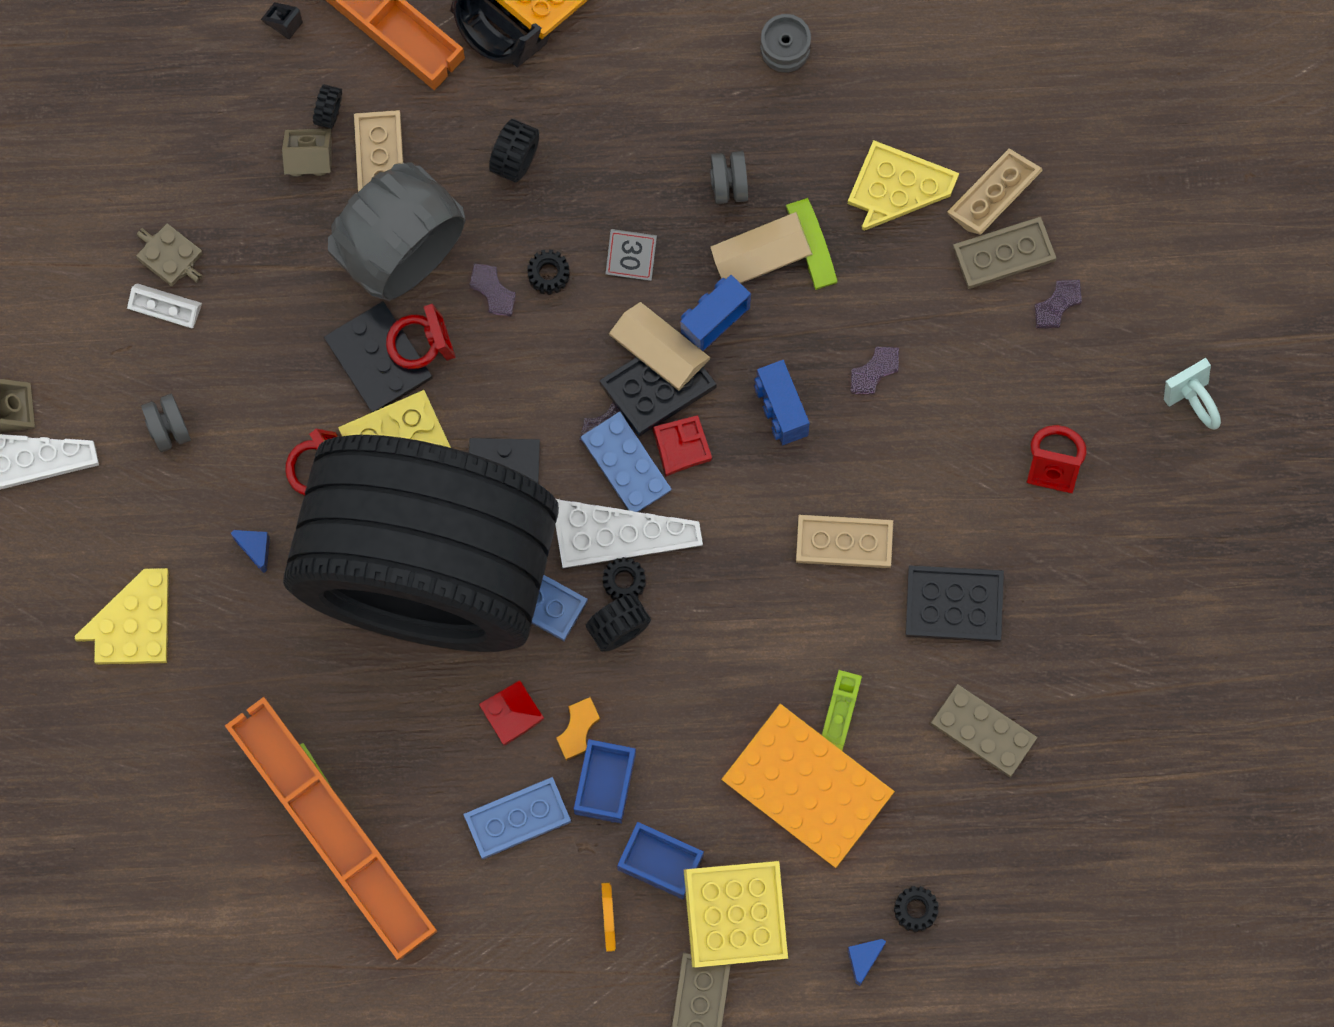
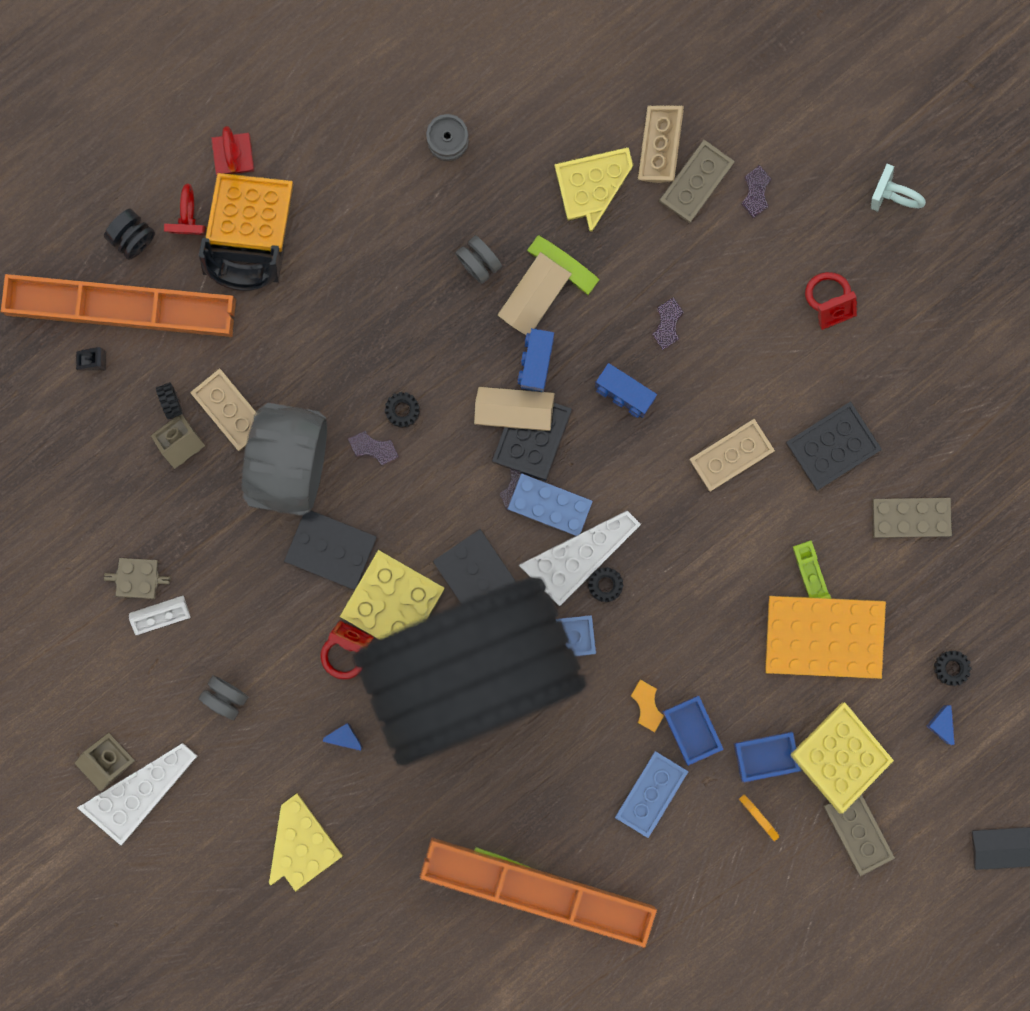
camera: 30 degrees left, 10 degrees up
(436, 335) = (359, 507): red tile -> none
(511, 712) = (596, 726): red plate -> none
(514, 150) = (319, 343): black tyre -> none
(618, 622) = (626, 619): black tyre -> none
(631, 254) = (449, 358): light grey piece -> none
(681, 444) = (577, 465): red plate -> none

